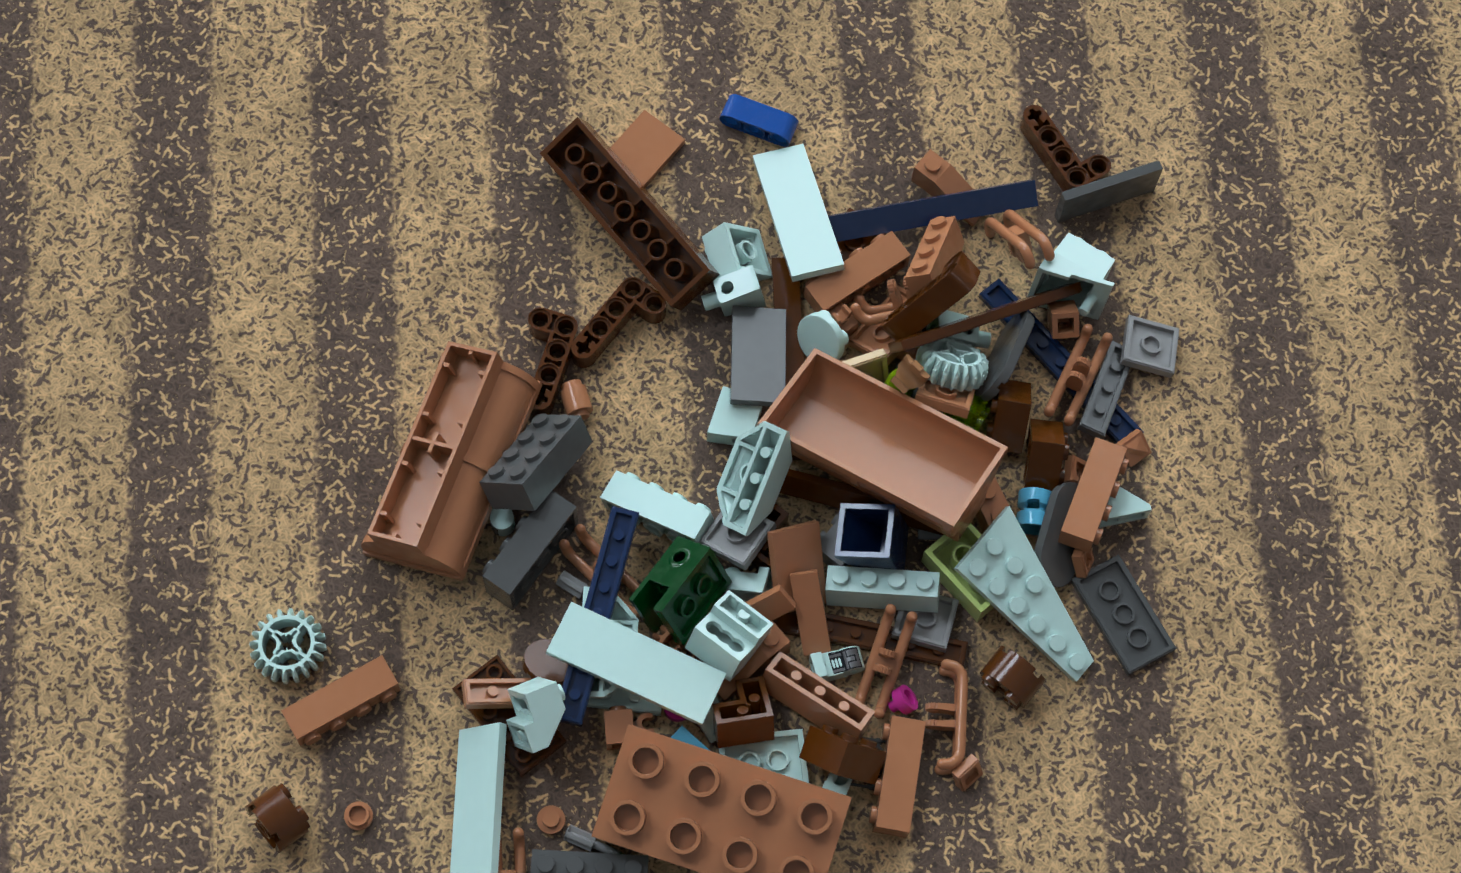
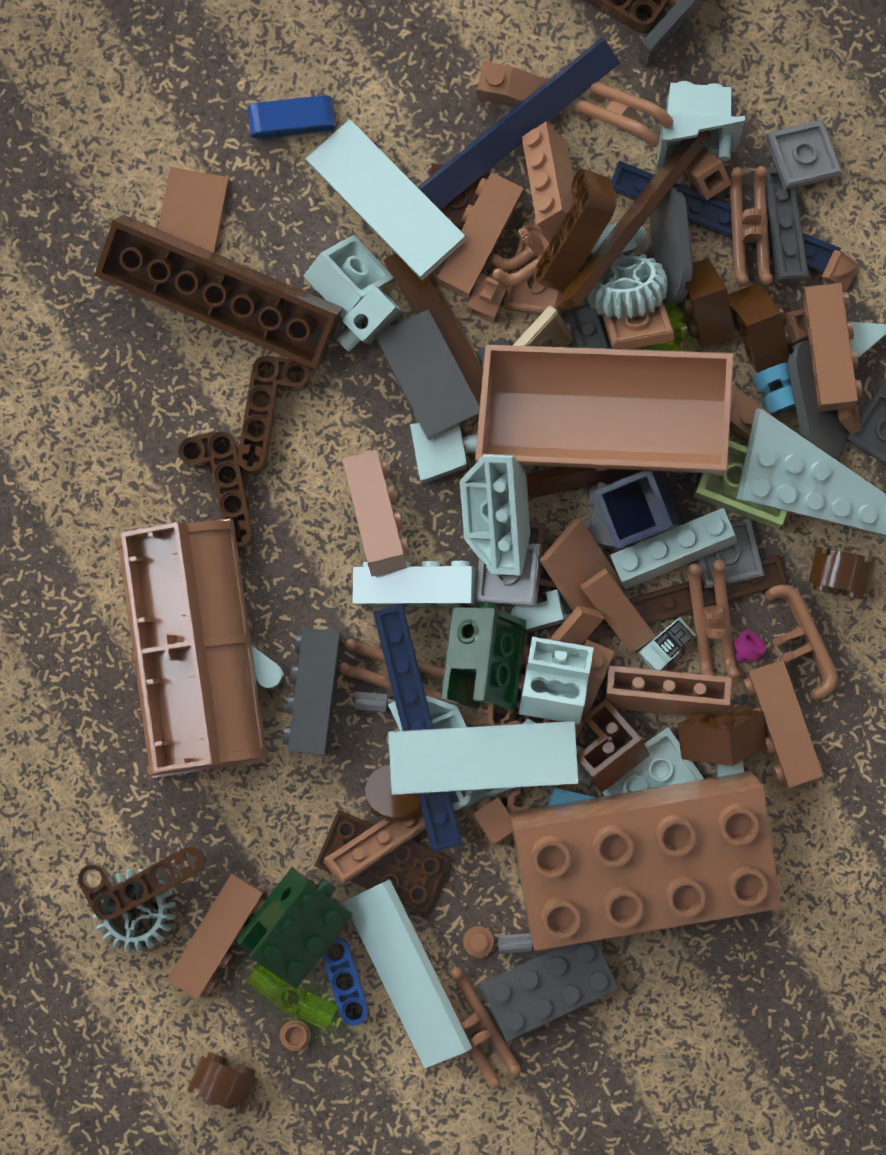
camera: 20 degrees left, 15 degrees up
(313, 616) = (146, 878): none -> reddish brown beam
(382, 796) = (310, 1006): none -> clear neon green piece
(409, 722) = (294, 927): none -> dark green torso
(421, 778) = (354, 993): none -> blue beam
(536, 462) = (274, 605): dark grey brick -> none
(538, 713) = (415, 857): light aqua piece -> none
(576, 398) = (272, 513): nougat brick -> none
(656, 437) = (374, 512): none -> nougat brick
(823, 333) = (481, 322): light aqua tile -> none
(907, 376) = (591, 330): medium nougat piece -> none
(967, 772) = (845, 686): nougat tile -> none

